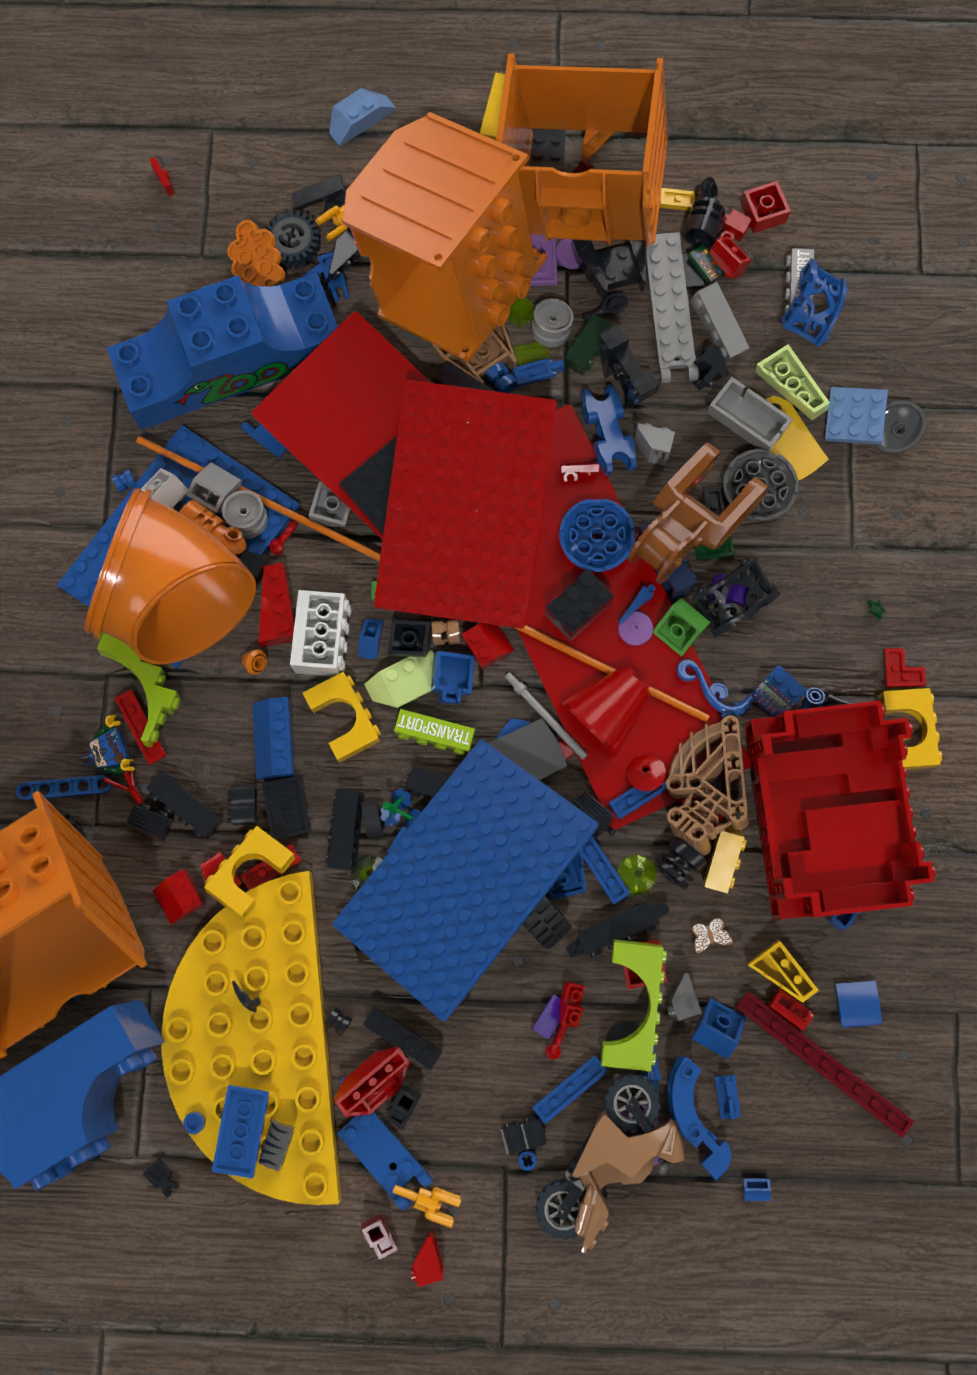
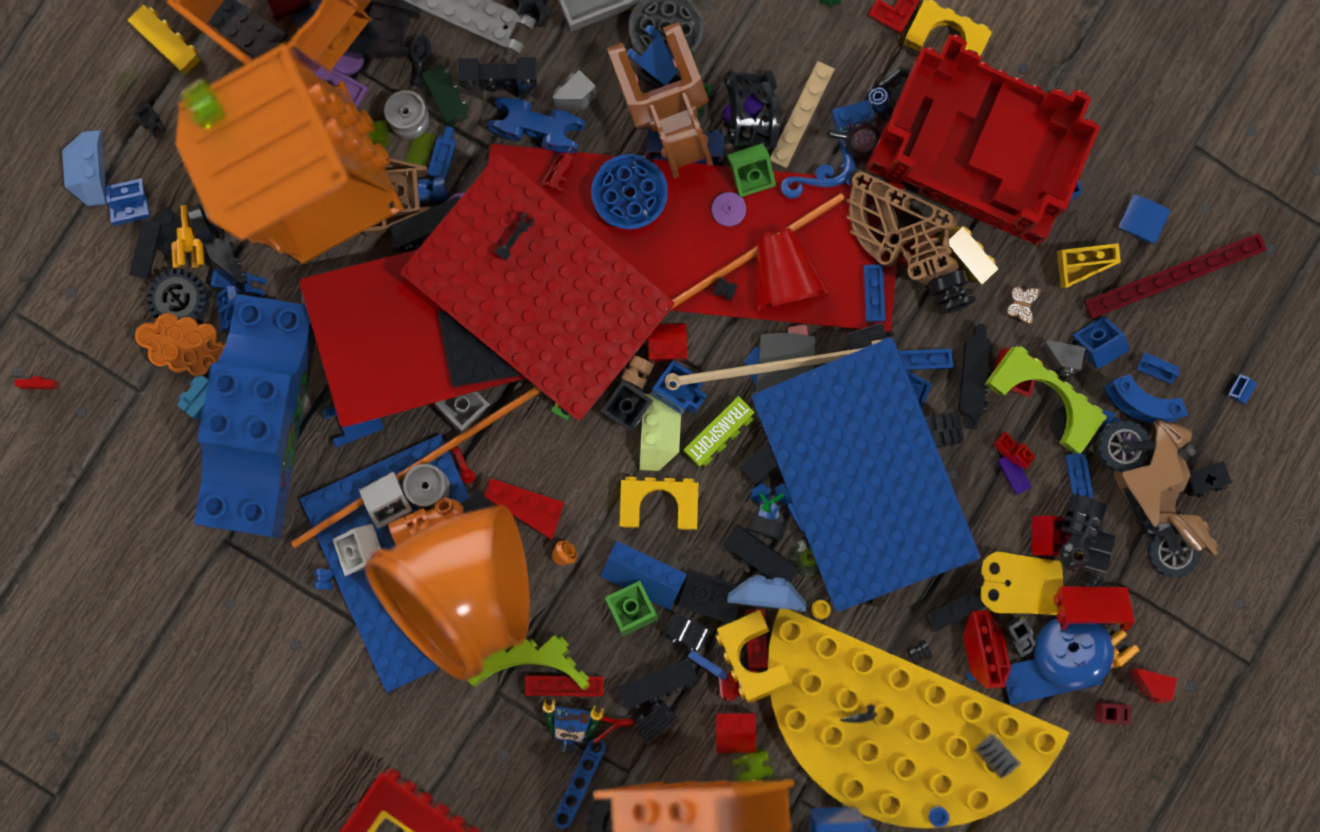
camera: 65 degrees left, 5 degrees up
(157, 931) = (755, 766): none -> clear neon green animal
(221, 837) = (708, 665): none -> blue tile
(236, 744) = (631, 608): none -> bright green slope
(240, 1131) = (969, 779): blue plate -> none
(312, 854) = (767, 593): none -> medium blue wedge
(318, 615) = (562, 483): white brick -> none
(329, 910) = (821, 609): none -> yellow plate
(348, 159) = (127, 202): none -> blue slope
(370, 638) = (603, 440): blue slope -> none
(411, 1185) = (1075, 669): none -> blue brick
(438, 125) = (203, 103): none -> clear neon green brick
(458, 1092) = (1031, 587): none -> yellow piece
(468, 1160) = (1094, 606): none -> red panel
(492, 1146) = (1091, 579): none -> black wheel
(505, 454) = (504, 251): none -> black bar
(505, 727) = (755, 369): none -> tan hinge
(513, 1085) = (1047, 535): none -> red slope
(521, 689) = (724, 337): light grey bar -> none
(521, 1161) = (1117, 565): blue bush -> none
(536, 1106) = (1083, 525): none -> black cylinder
(553, 1050) = (1043, 487): red piece -> none
(562, 664) = (725, 288): none -> black wheel
(579, 605) = (682, 244): black piece -> none
(643, 597) = (705, 185): blue piece -> none
(646, 780) = (865, 281): red dish -> none
(646, 868) = (928, 337): clear neon green dish -> none
(663, 1208) = (1218, 475): none -> black brick
(718, 1157) = (1202, 405): blue brick -> none
(726, 490) = (656, 58): none -> blue flag
(758, 644) = (801, 115): none -> tan plate
(767, 701) = (859, 138): none -> black piece
(790, 1010) = (1118, 276): red hinge -> none

